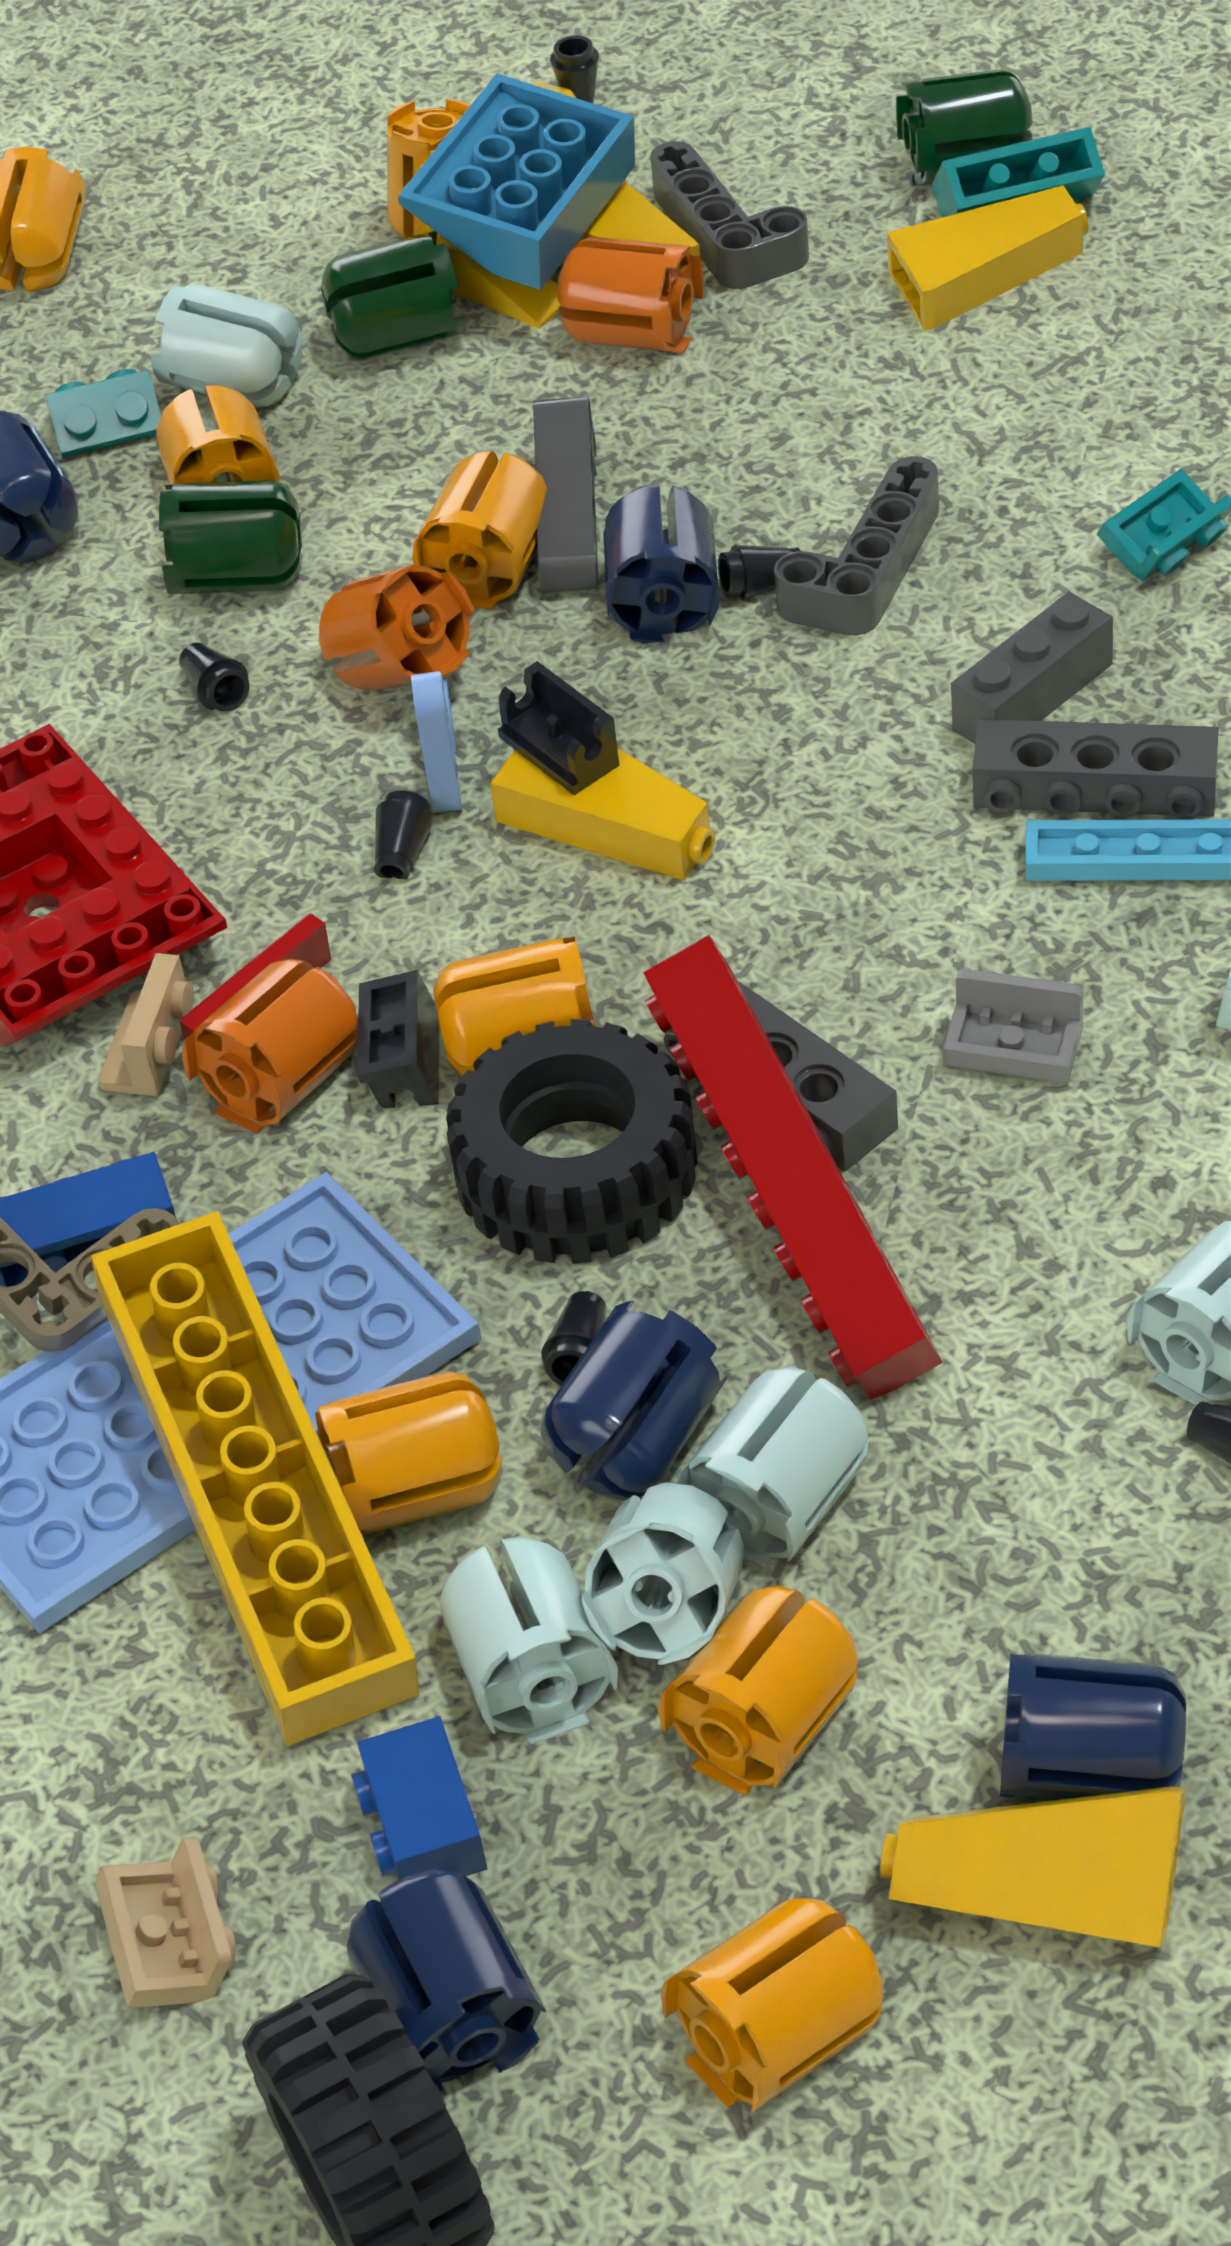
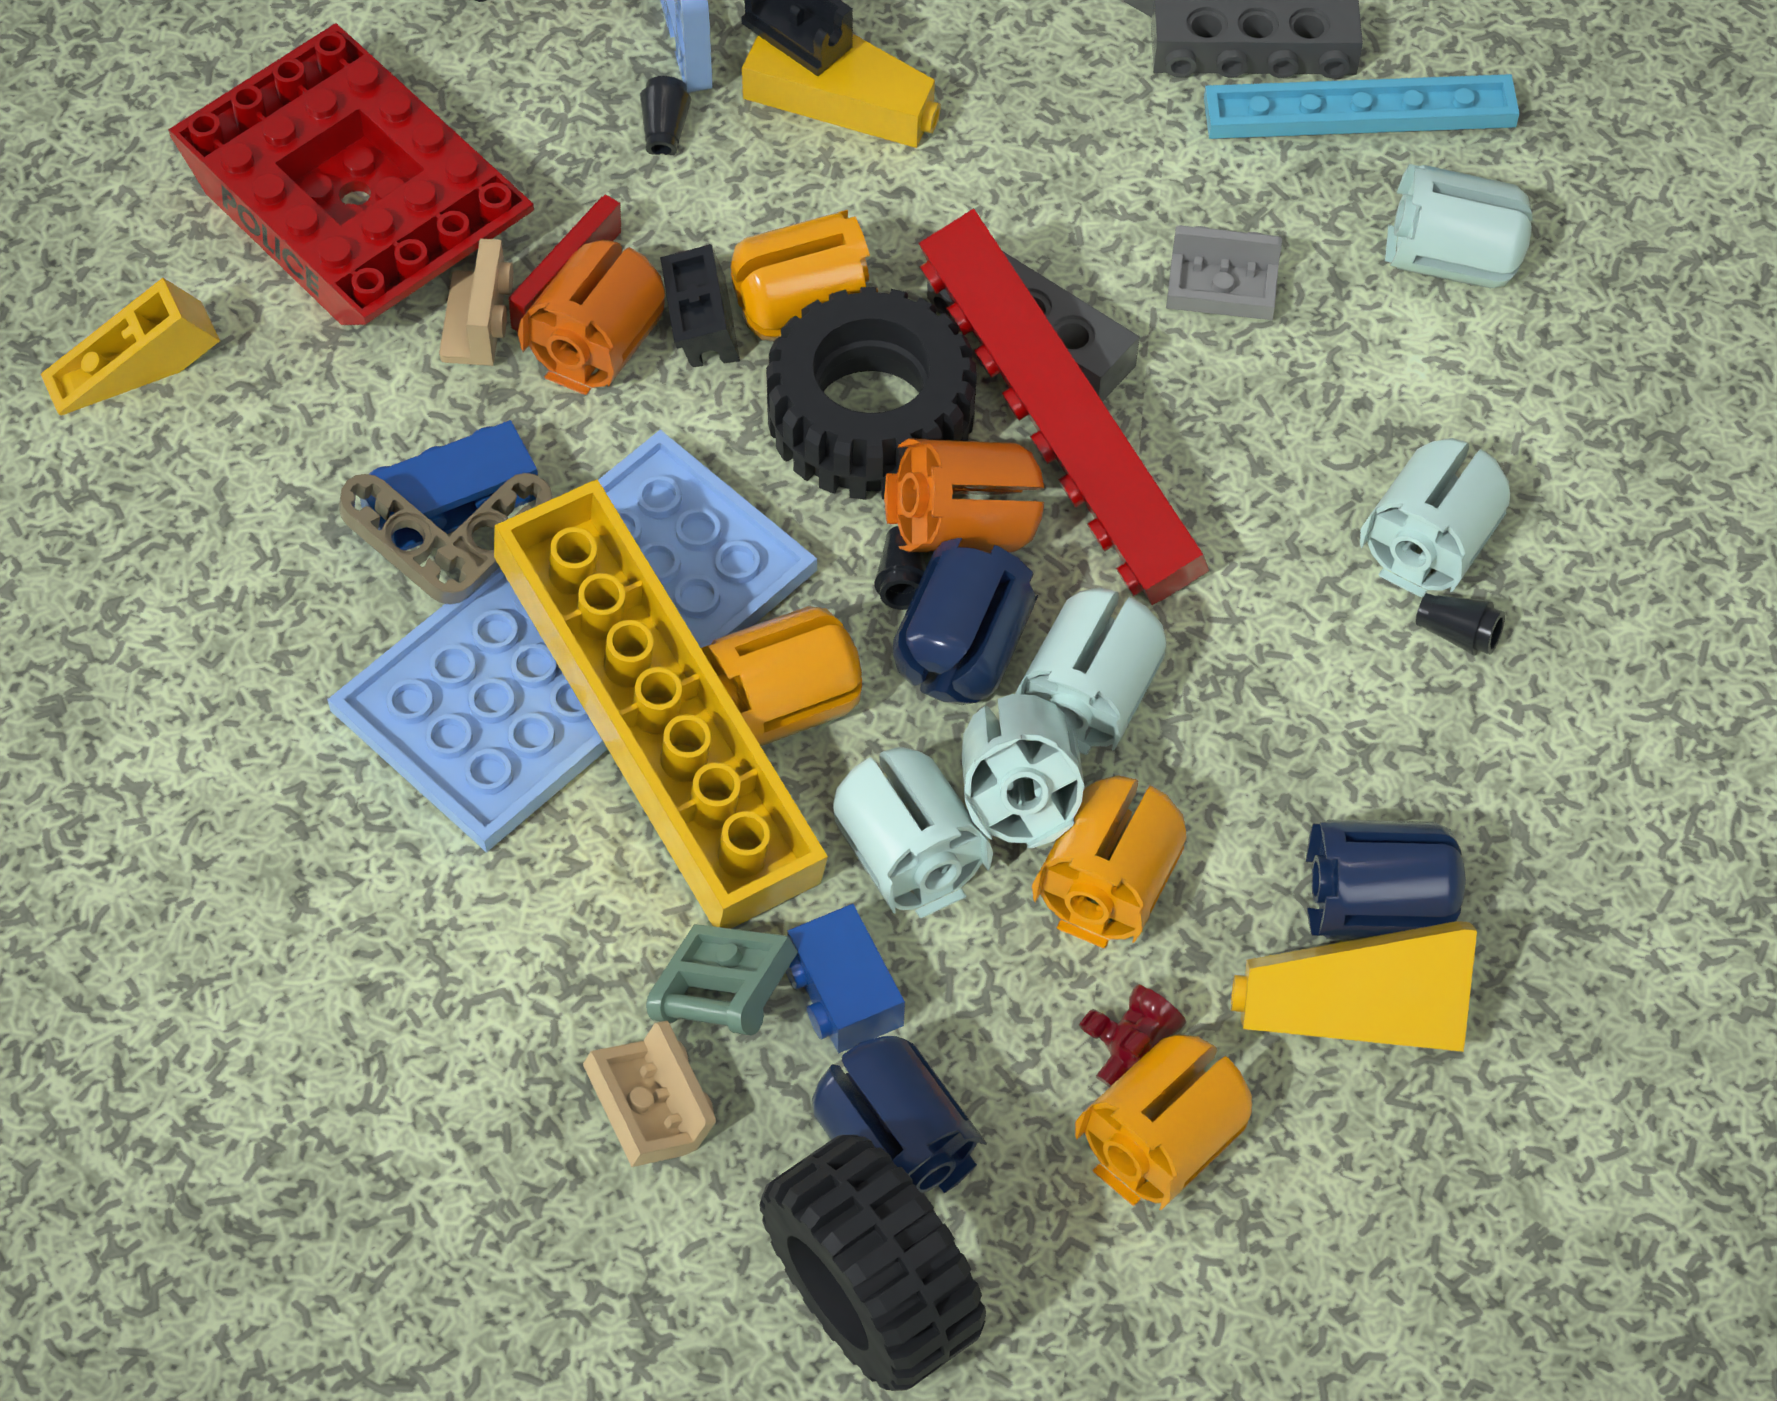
camera: 15 degrees left, 10 degrees up
(275, 1773) = (726, 962): none -> sand green plate
(658, 1254) = (936, 469): none -> orange cylinder
(774, 1880) = (1140, 1029): none -> dark red piece

